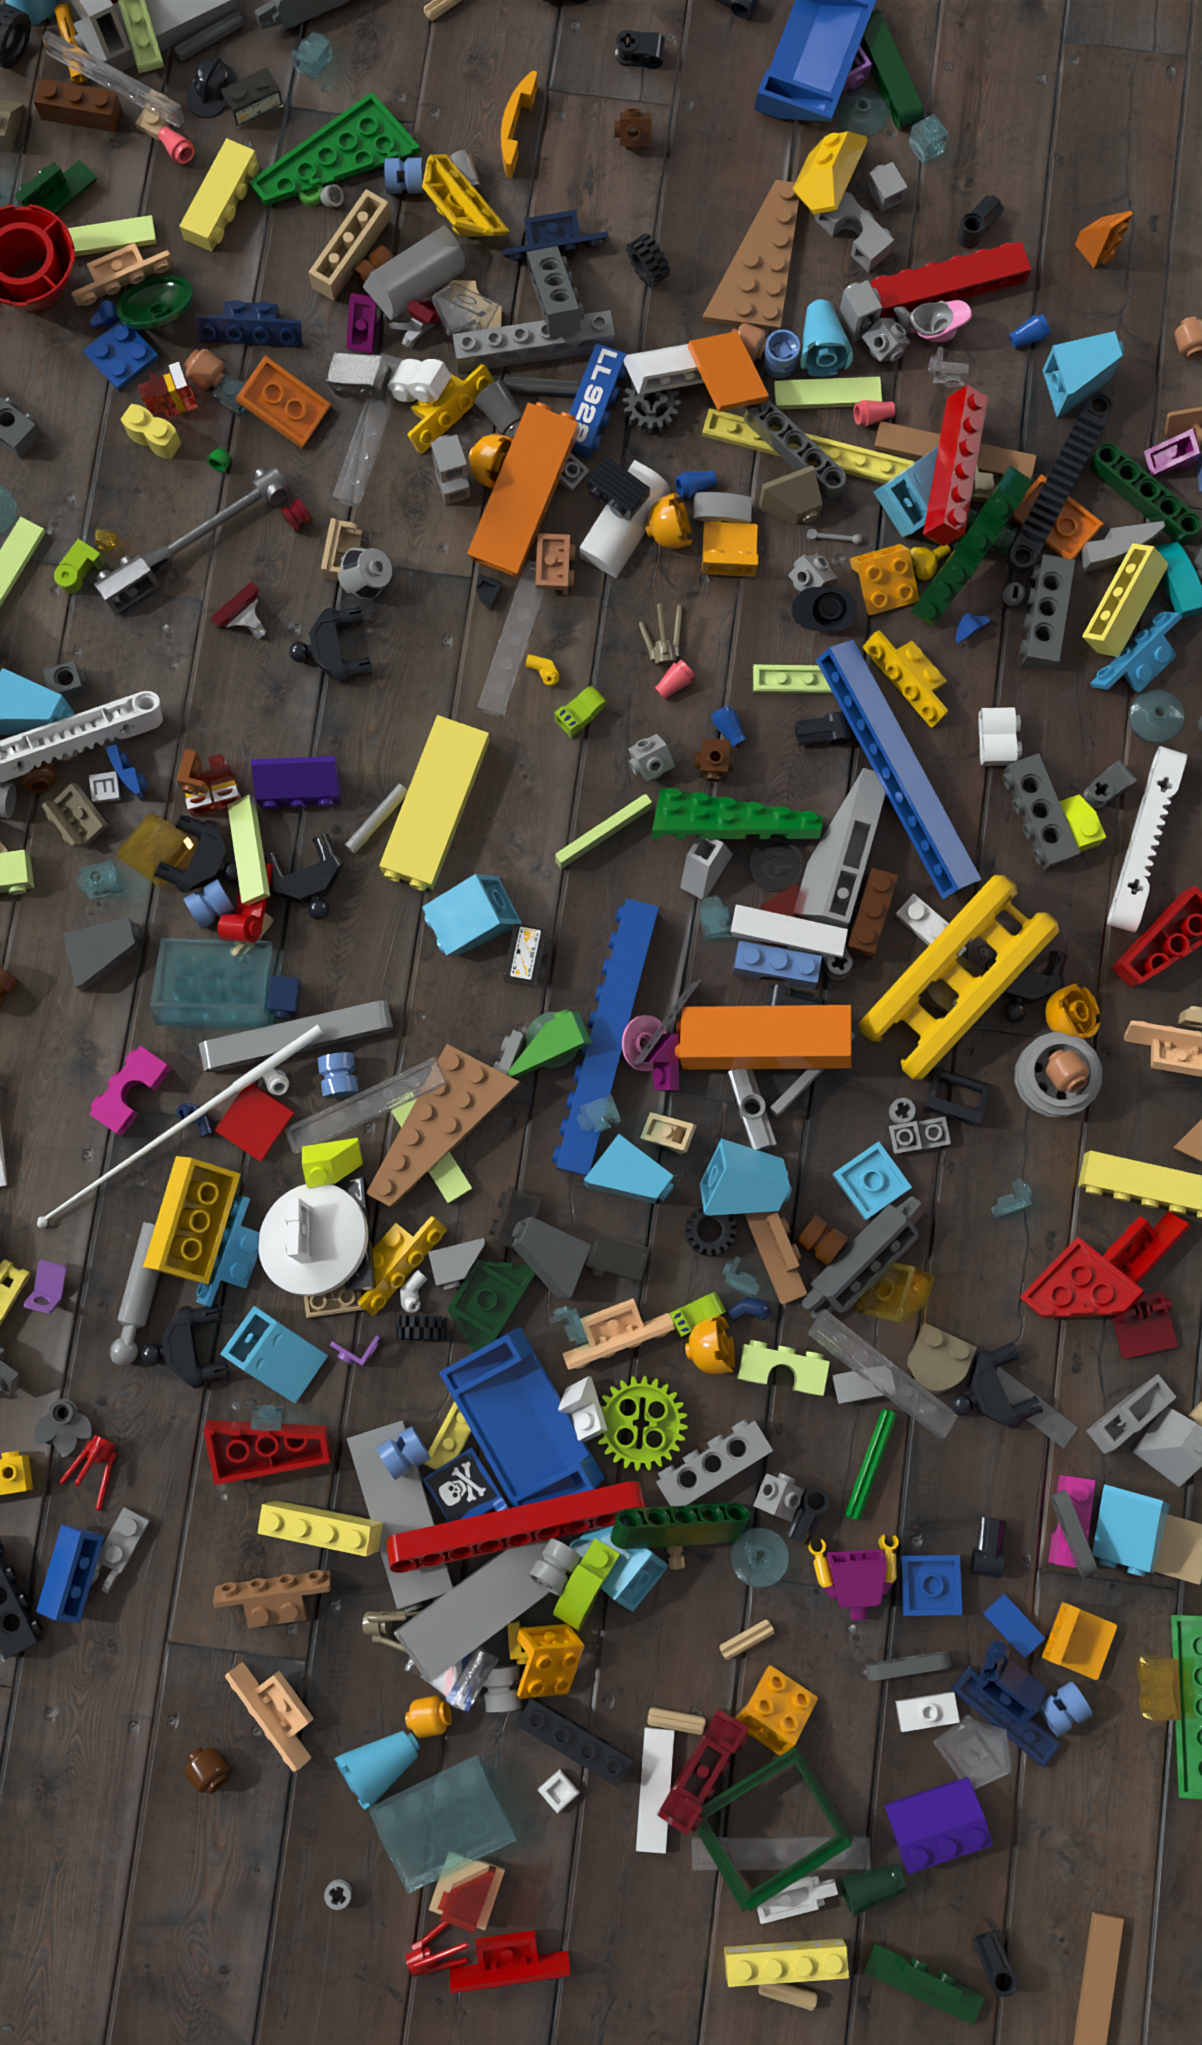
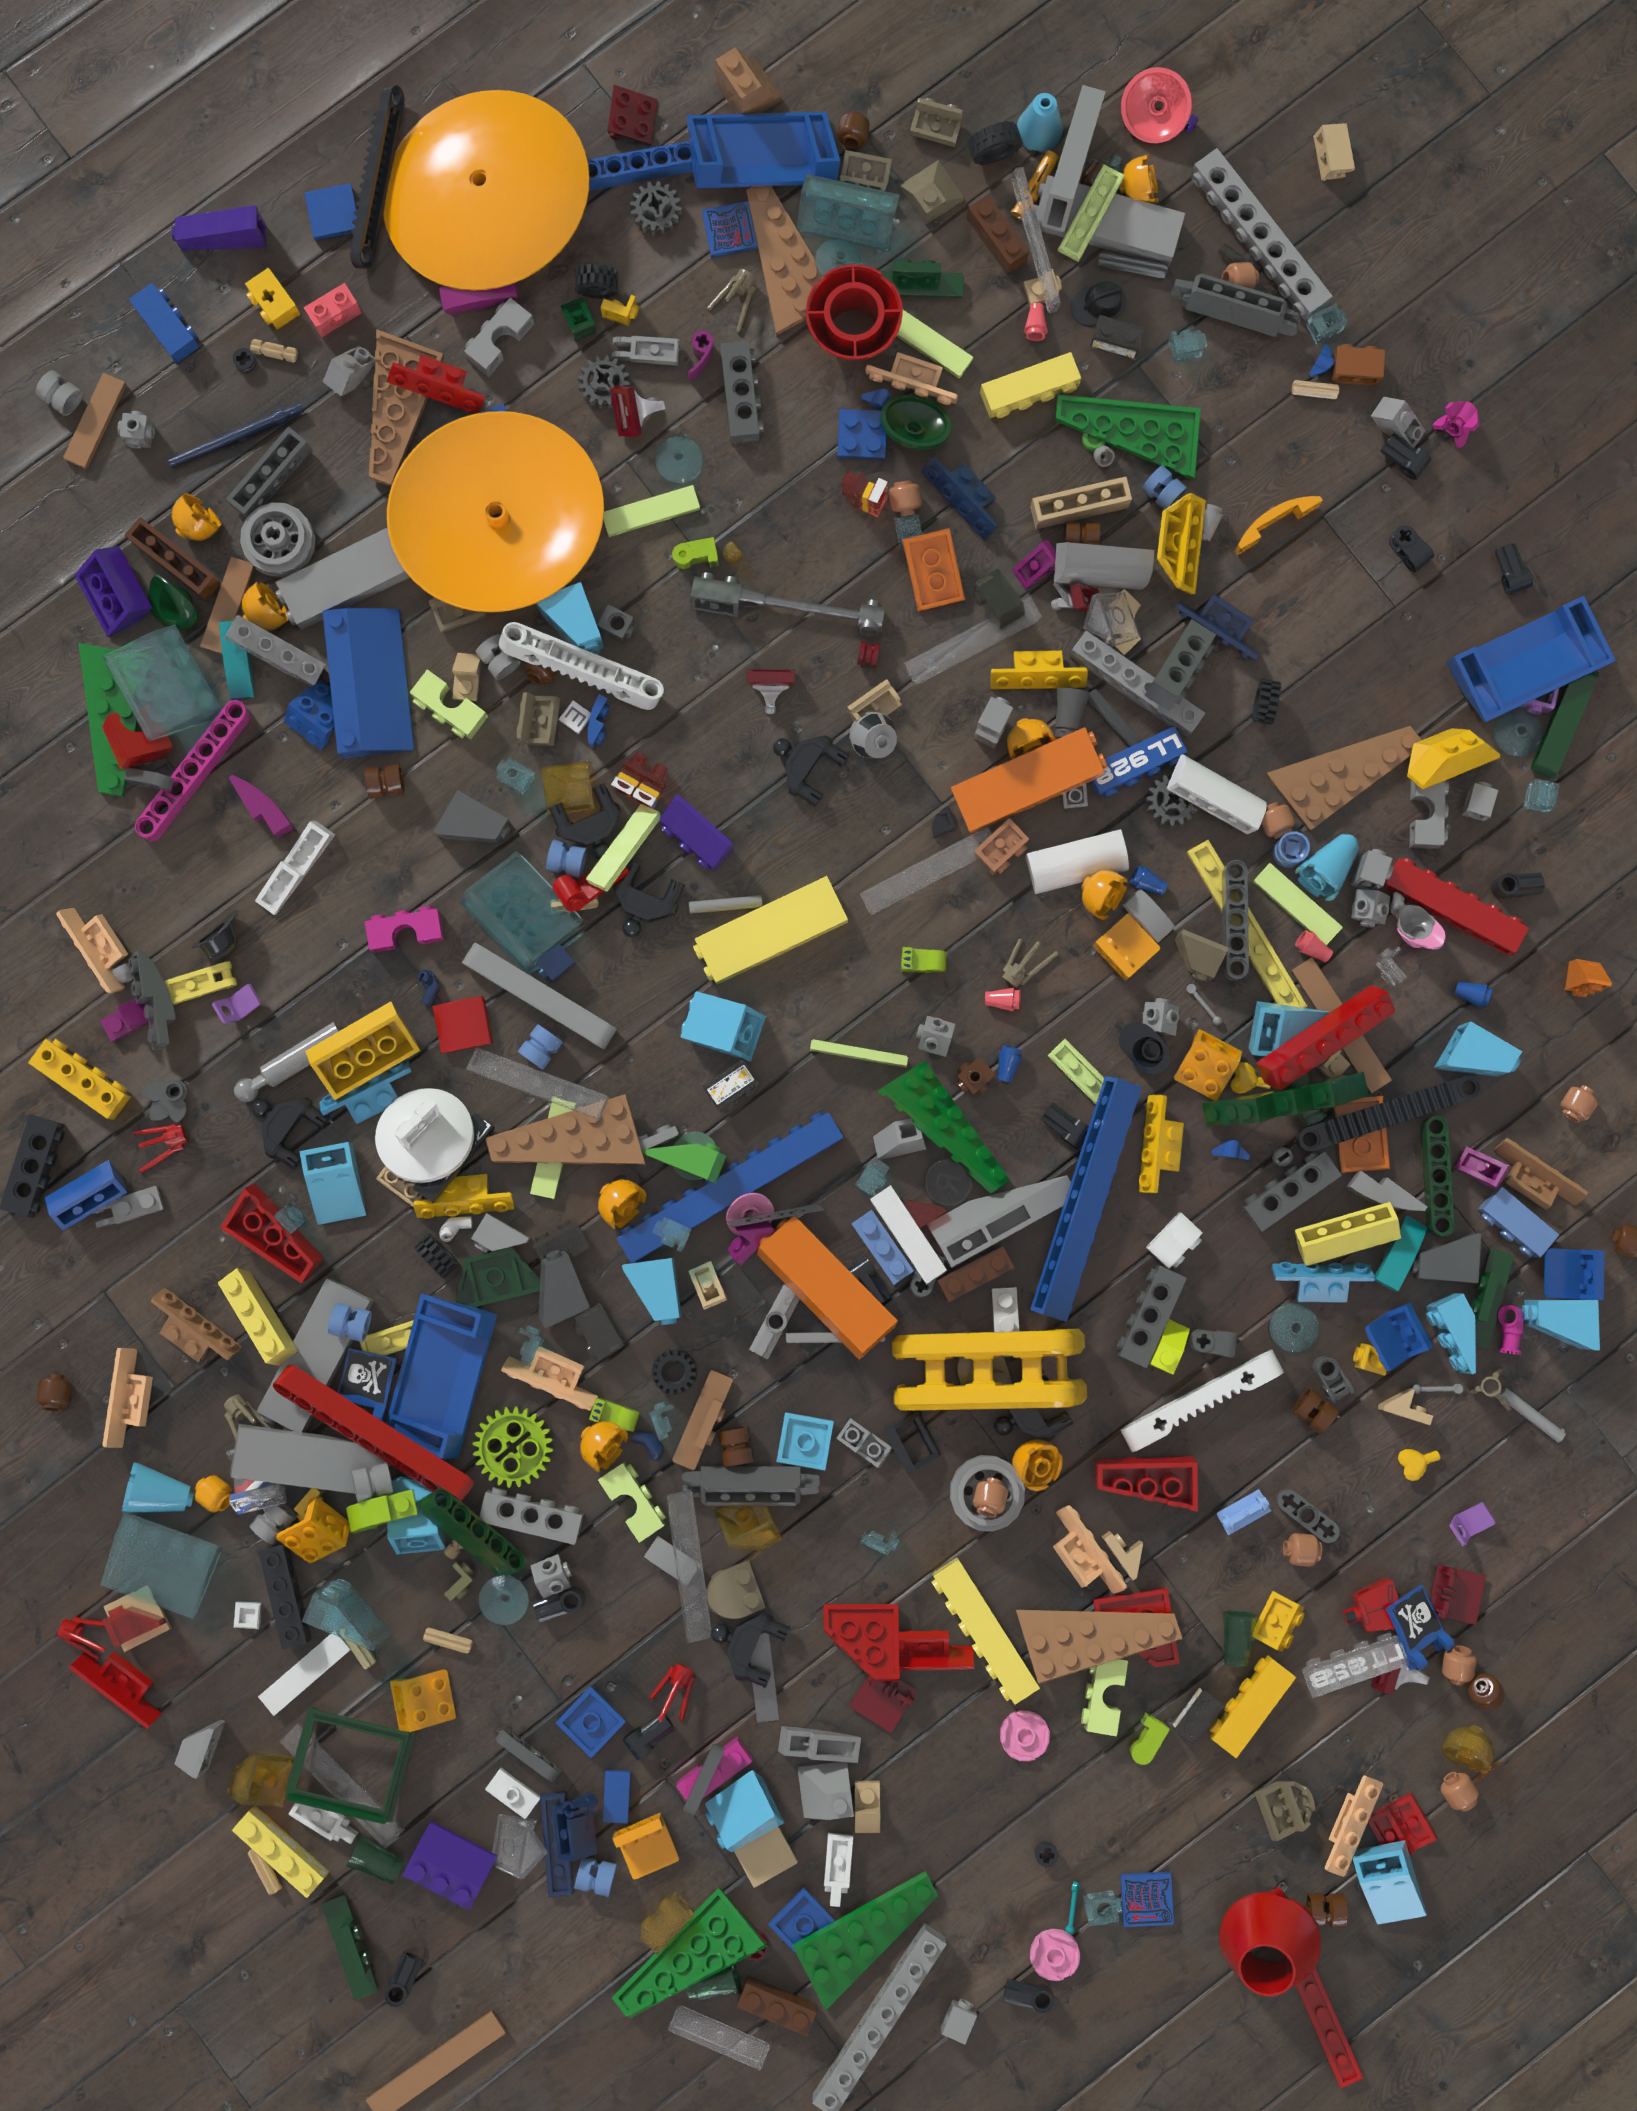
camera: 45 degrees right, 5 degrees up
(151, 431) = (828, 504): light yellow brick -> none
(189, 769) = (634, 761): dark orange bracket -> none
(219, 460) = (856, 568): green hinge -> none
(274, 1079) = (498, 1013): white piece -> none
(328, 1896) = (66, 1548): light grey bush -> none
(330, 1161) = (482, 1096): neon yellow slope -> none
(350, 1358) = (377, 1229): medium lavender bracket -> none
(419, 380) = (1034, 640): white brick -> none
(528, 1135) = (619, 1202): none -> light orange cylinder
(545, 667) = (929, 910): yellow arm -> none
(583, 1405) = (488, 1401): white slope -> none
(617, 489) = (1088, 839): black brick -> none
(630, 1948) = (198, 1750): none -> light grey slope
(633, 138) = (1348, 601): reddish brown brick -> none
(641, 1700) = (346, 1615): none -> clear light blue slope
(701, 1770) = (347, 1688): dark red bracket -> none
(709, 1918) = (261, 1780): none -> clear yellow slope
(713, 1584) = (460, 1588): none -> olive bracket
(728, 371) = (1238, 830): orange tile -> none
(743, 1181) = (722, 1363): medium azure slope -> none
(857, 1576) = (550, 1671): magenta torso -> none
(870, 1464) = (628, 1612): green axle -> none
(893, 1108) = (865, 1409): light grey bush -> none
(967, 1473) = (680, 1677): none -> red plant

